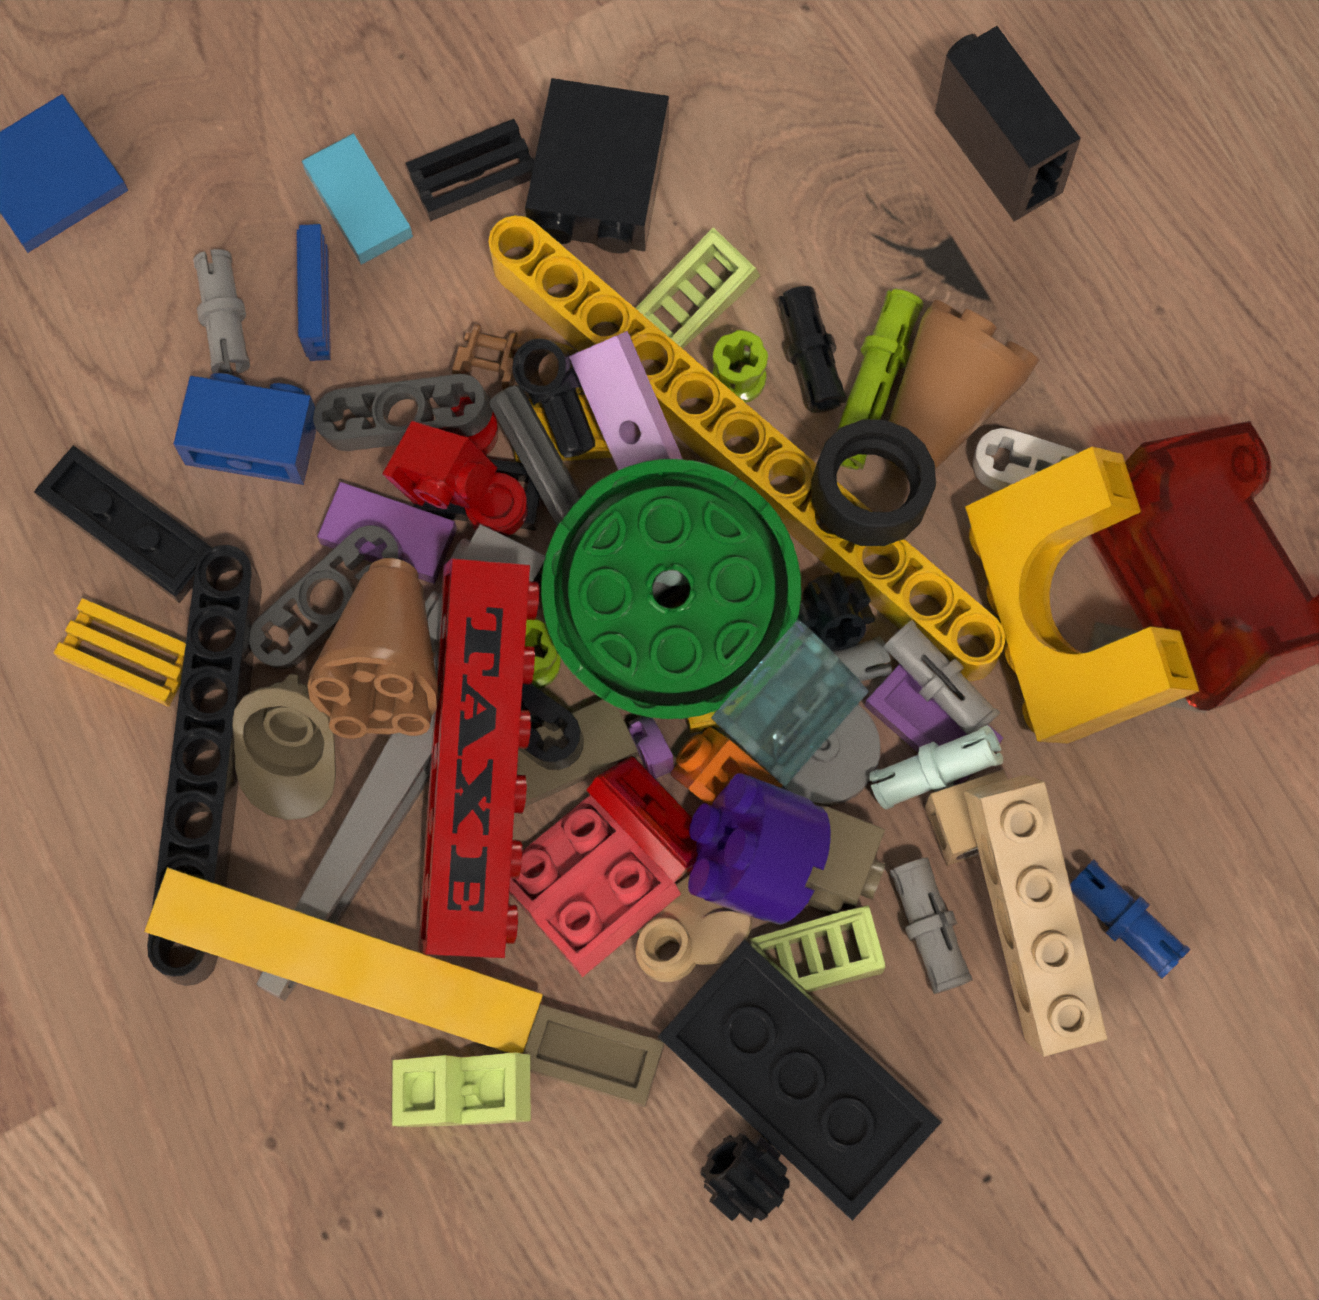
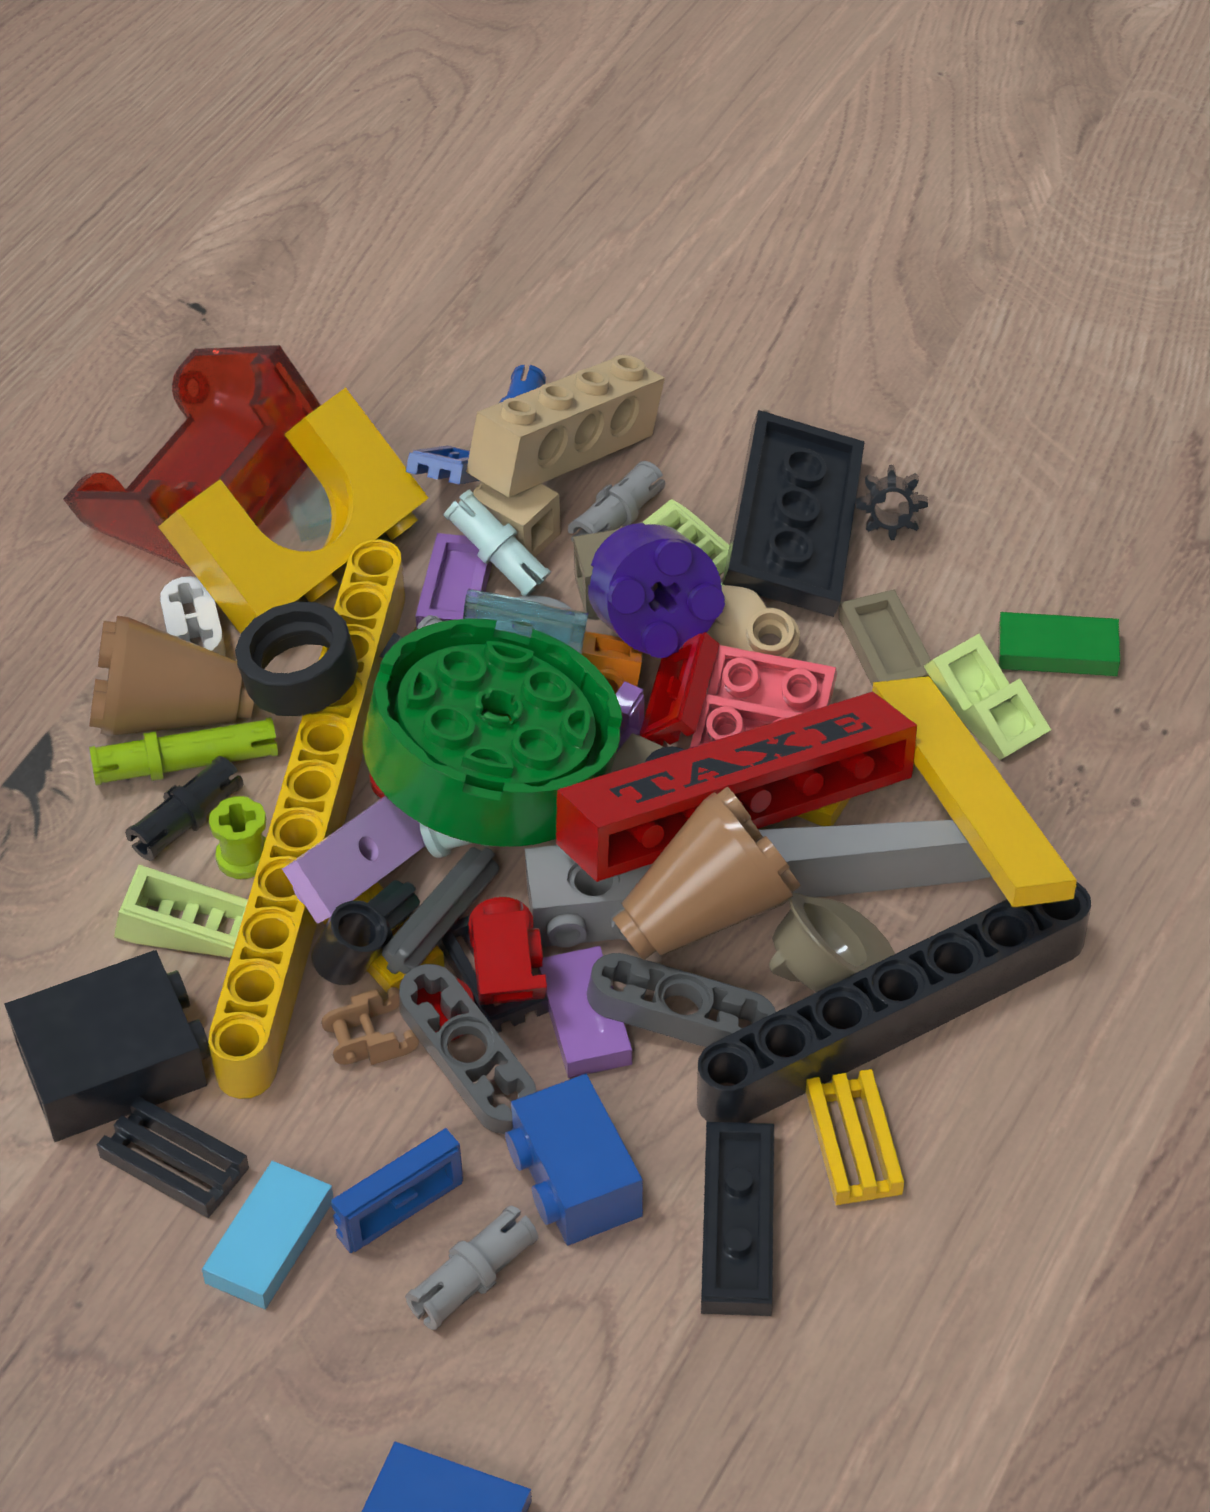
camera: 125 degrees left, 25 degrees down
(481, 1214) = (1058, 643): none -> green tile
(909, 648) = (424, 570): light grey pin -> none
(1047, 755) = (441, 463): none -> tile

